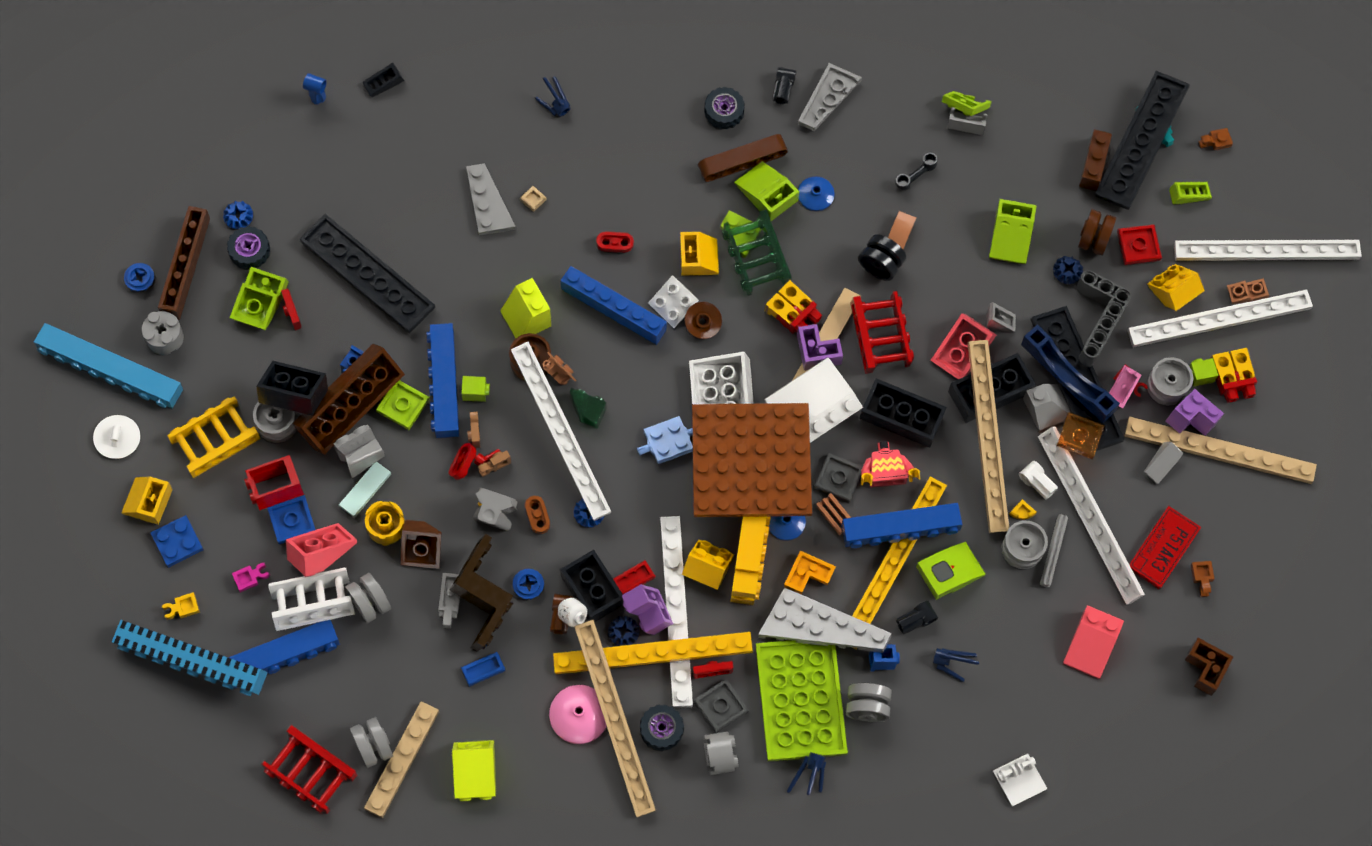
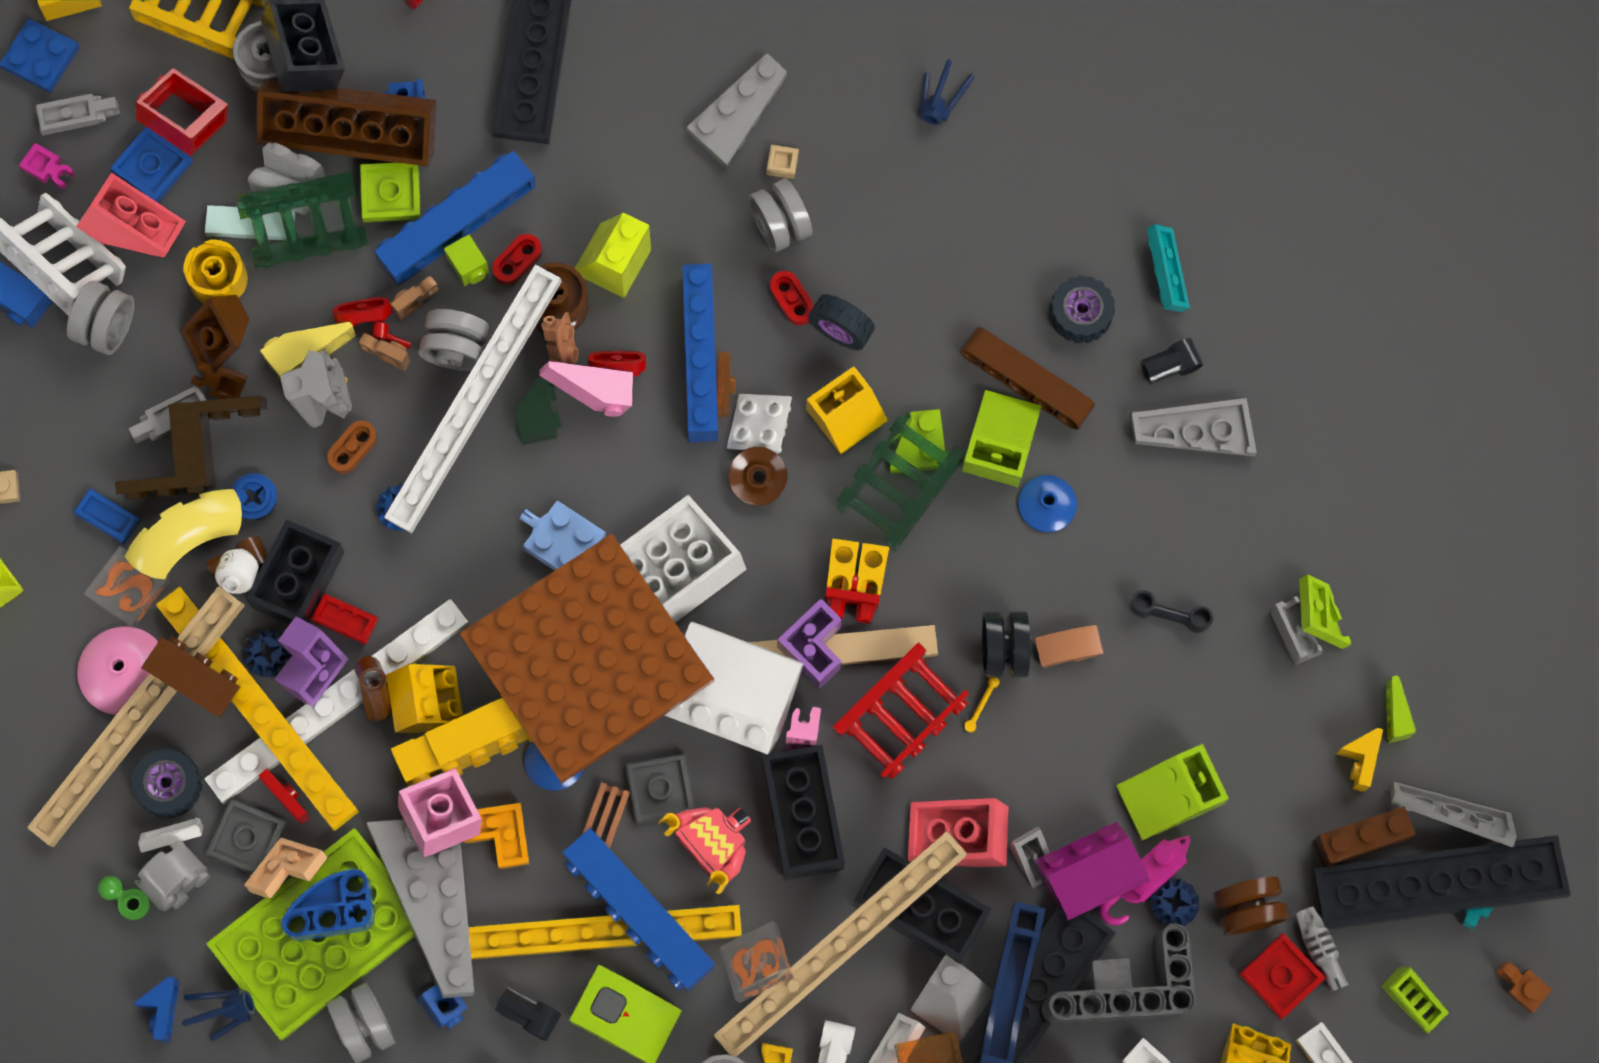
camera: 55 degrees right, 5 degrees up
(228, 542) = (75, 113): none -> light grey hinge
(377, 449) = (296, 195): none -> clear green fence
(451, 558) = (223, 383): none -> reddish brown plate
(461, 508) = (291, 348): none -> light yellow slope
(491, 365) = (517, 261): none -> red plate
(517, 421) = (453, 339): none -> light grey wheel
(526, 629) = (184, 528): none -> light yellow brick
(532, 683) = (124, 589): none -> clear tile
(567, 215) = (780, 215): none -> light grey wheel
(588, 349) = (619, 360): none -> red plate
(595, 369) = (595, 387): none -> bright pink slope
(617, 669) = (192, 675): none -> reddish brown brick
(641, 301) = (726, 384): none -> clear orange plate
(650, 223) = (841, 322): none -> black wheel
(686, 584) = (373, 689): none -> reddish brown piece
(693, 742) = (170, 834): none -> white tile
(701, 792) = (111, 888): none -> bright green plate
(731, 53) = (1168, 268): none -> teal plate
(749, 691) = (284, 860): none -> light nougat plate
(782, 590) = (439, 812): none -> bright pink brick
(785, 801) = (164, 1000): none -> blue slope
(792, 673) = (332, 896): none -> blue beam
(863, 381) = (803, 734): none -> bright pink hinge
(909, 306) = (970, 725): none -> yellow hinge
(967, 485) = (756, 961): none -> clear tile
(1029, 294) = (1092, 870): none -> magenta slope
(1042, 103) = (1399, 718): none -> lime slope
(1046, 274) = (1160, 865): none -> dark pink plate
(1054, 131) = (1365, 751): none -> yellow slope
(1088, 320) = (1111, 974): none -> flat silver panel
(1110, 110) = (1459, 813): none -> light grey wing
(1136, 216) = (1321, 947): none -> light grey hinge

